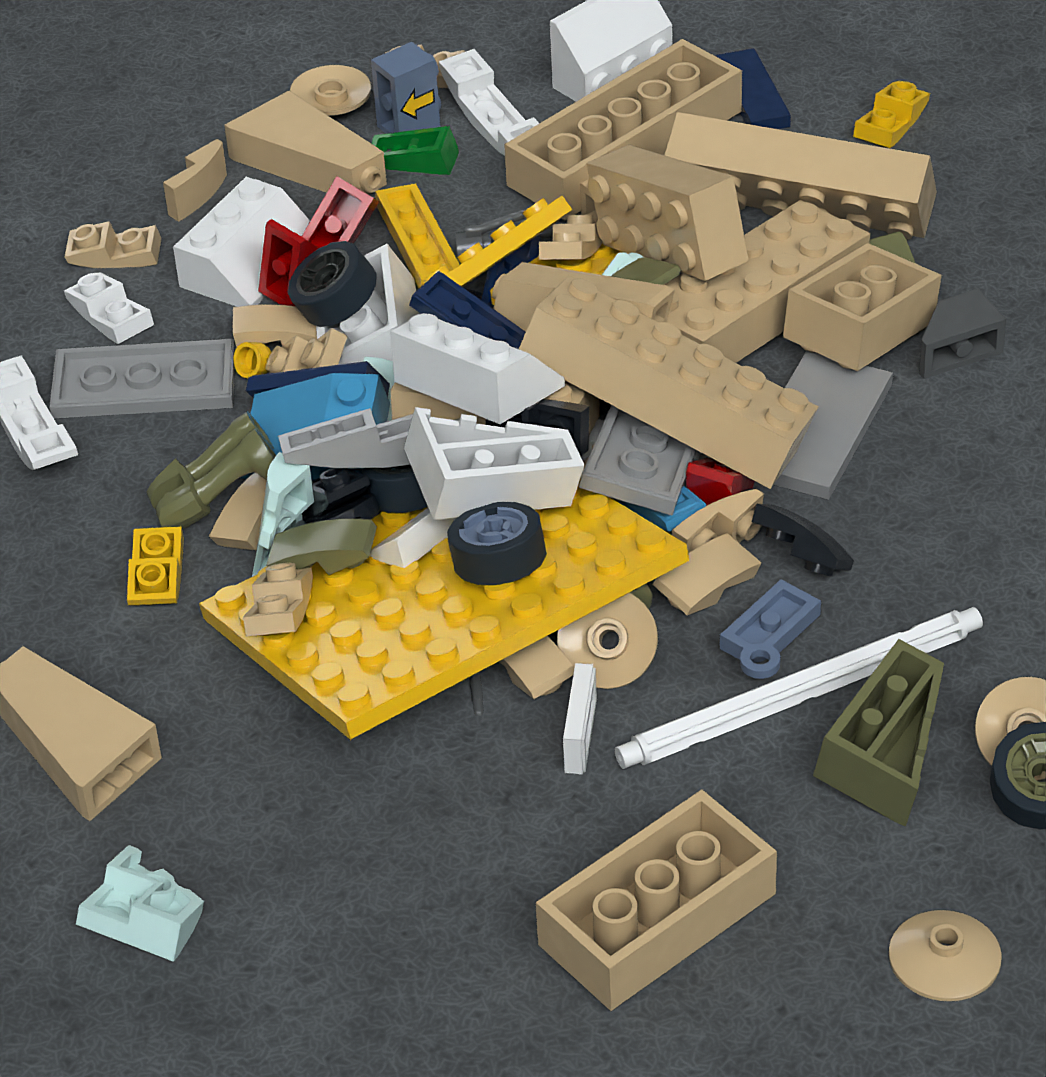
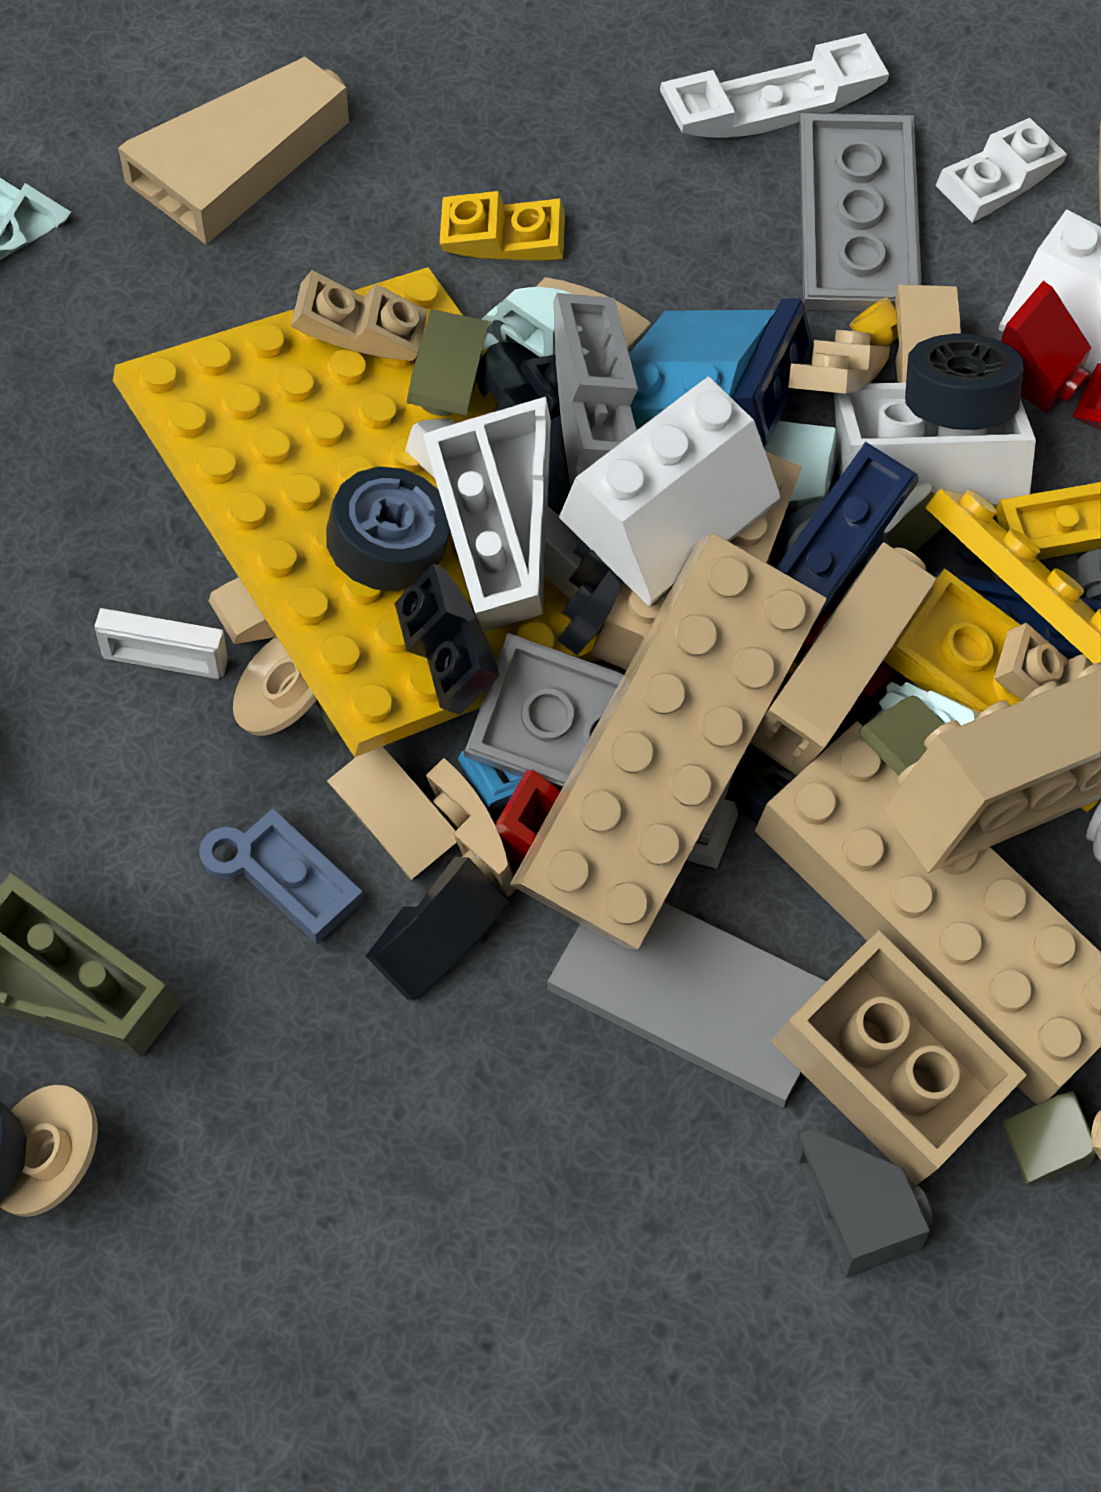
camera: 90 degrees right, 20 degrees up
(185, 492) = (615, 256): olive piece -> none
(598, 494) = (446, 632): none -> black slope
(790, 690) = (190, 914): white piece -> none

